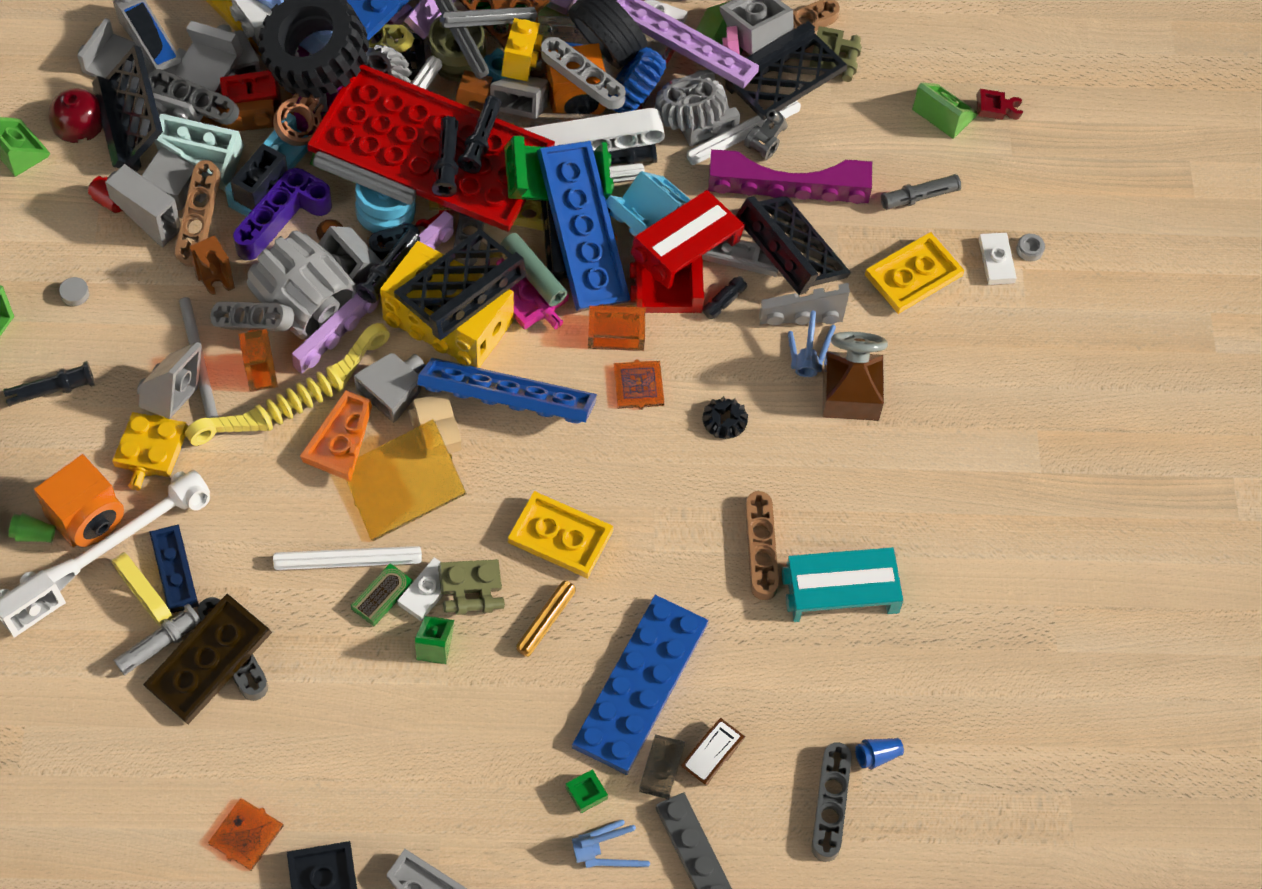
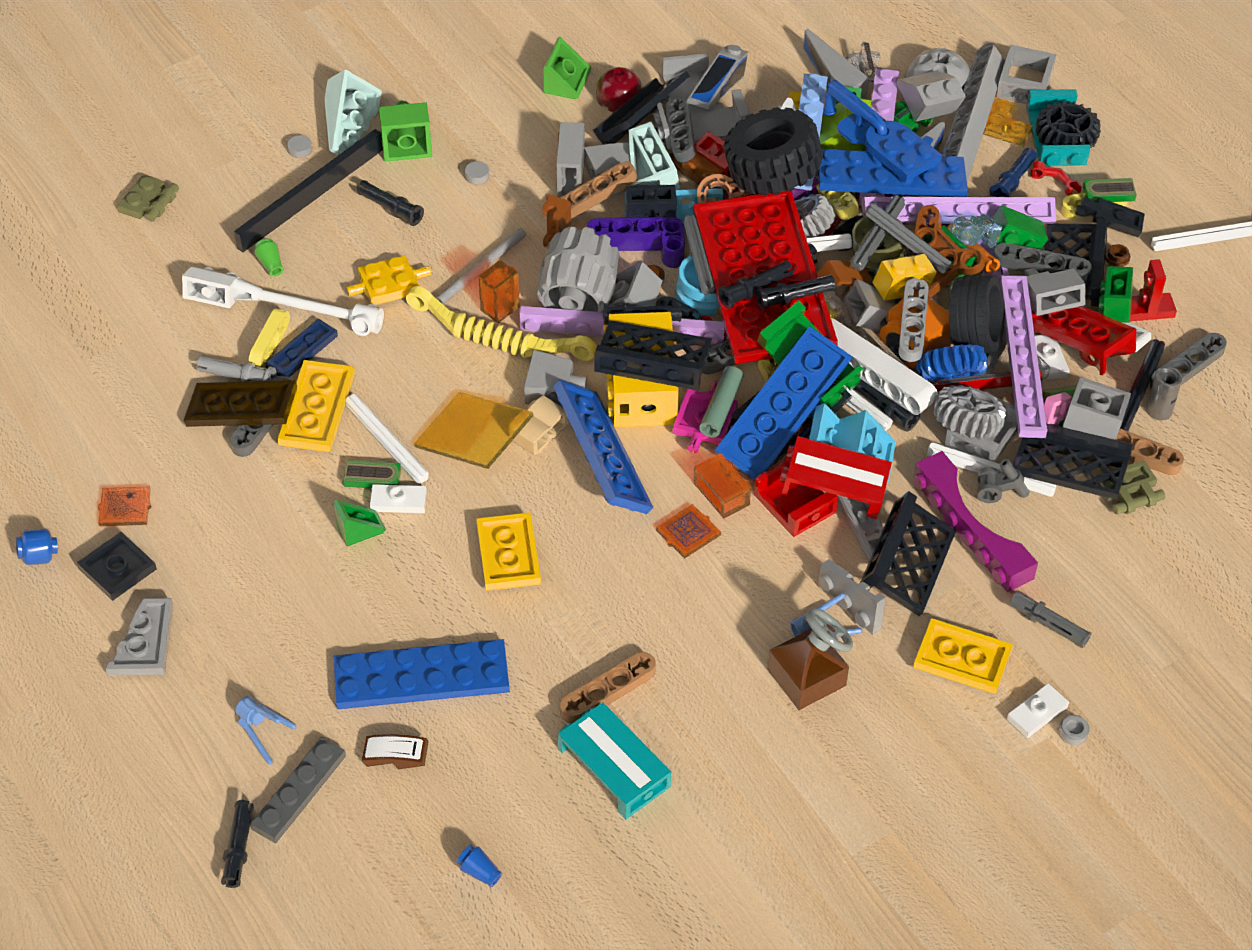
camera: 60 degrees right, 10 degrees down
(80, 503) = (304, 264): orange piece -> none
(171, 382) = (439, 257): light grey slope -> none
(251, 316) = (528, 264): light grey beam -> none
(263, 591) = (317, 406): none -> yellow plate
(340, 437) = (479, 376): orange wing -> none
(471, 577) = (425, 516): olive plate -> none
(545, 618) = (440, 582): axle -> none
(586, 791) = (299, 686): green plate -> none
(662, 767) = (355, 723): clear smoke plate -> none
(724, 297) = (817, 541): black axle -> none
(729, 428) = (697, 608): black gear -> none
(831, 801) = (408, 852): dark grey beam -> none
(942, 108) = (1155, 590): bright green slope -> none
(995, 106) = (1196, 625): dark red plate -> none

